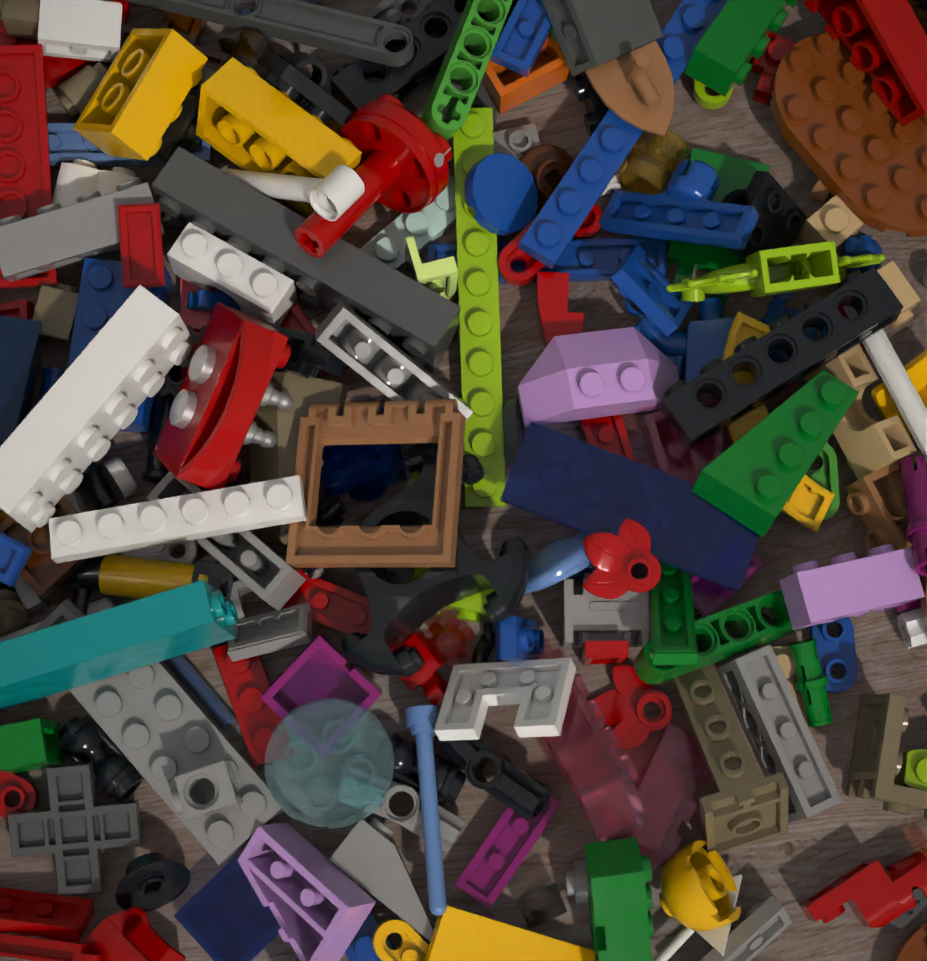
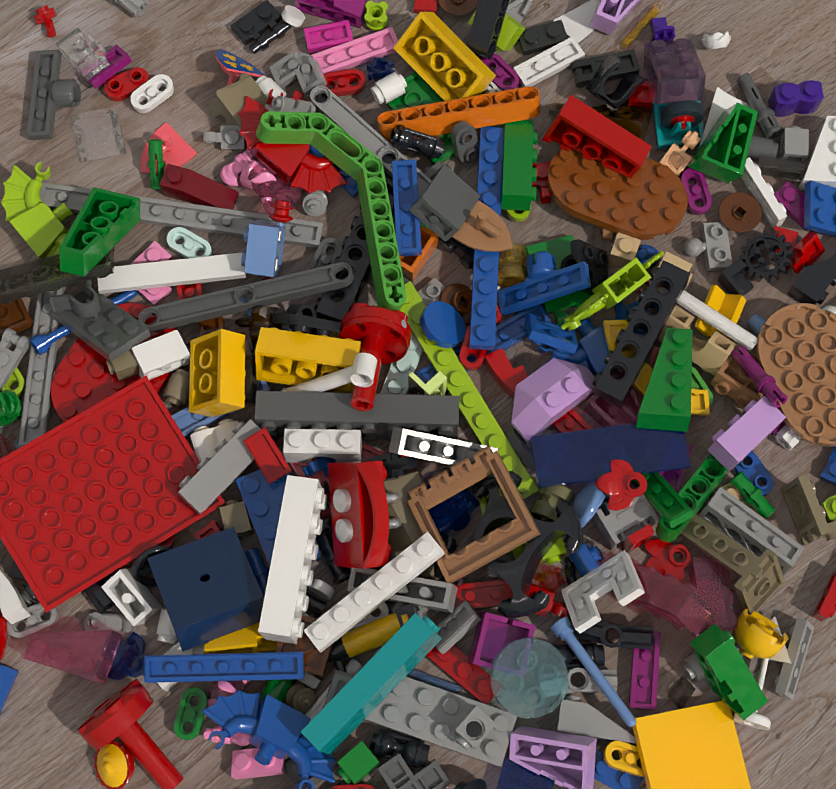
camera: 30 degrees left, 5 degrees down
(513, 523) = (550, 497): none -> olive wheel

